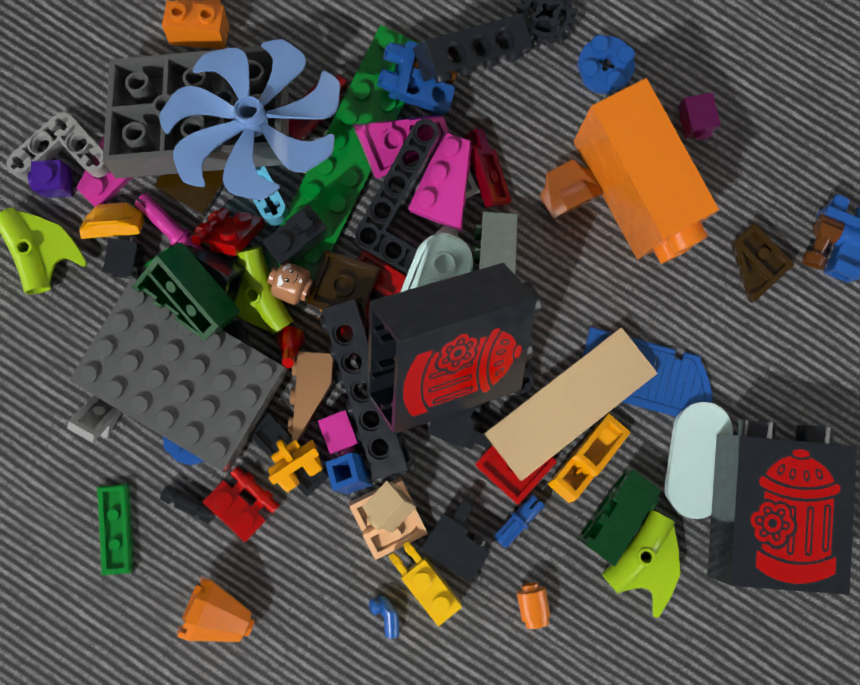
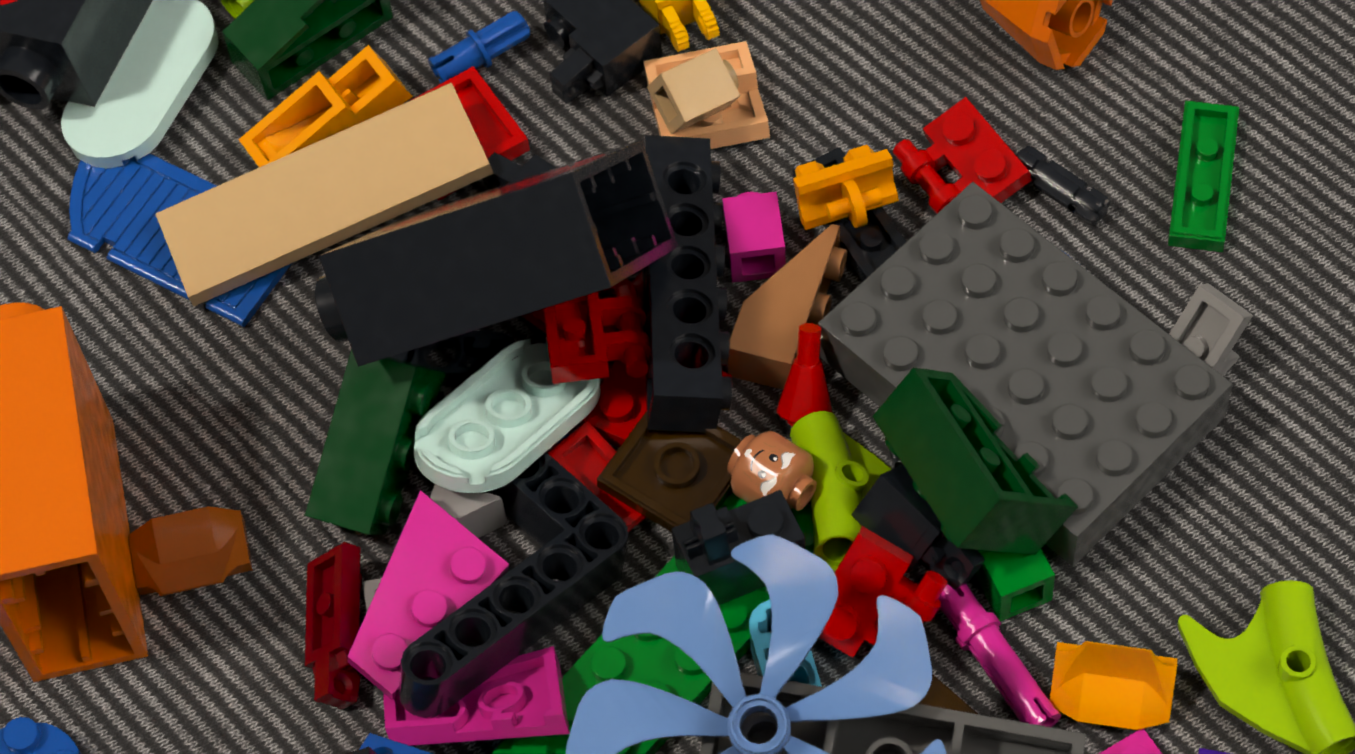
camera: 160 degrees left, 25 degrees down
(124, 257) = (1100, 606): black brick -> none
(348, 473) = (752, 159): blue brick -> none

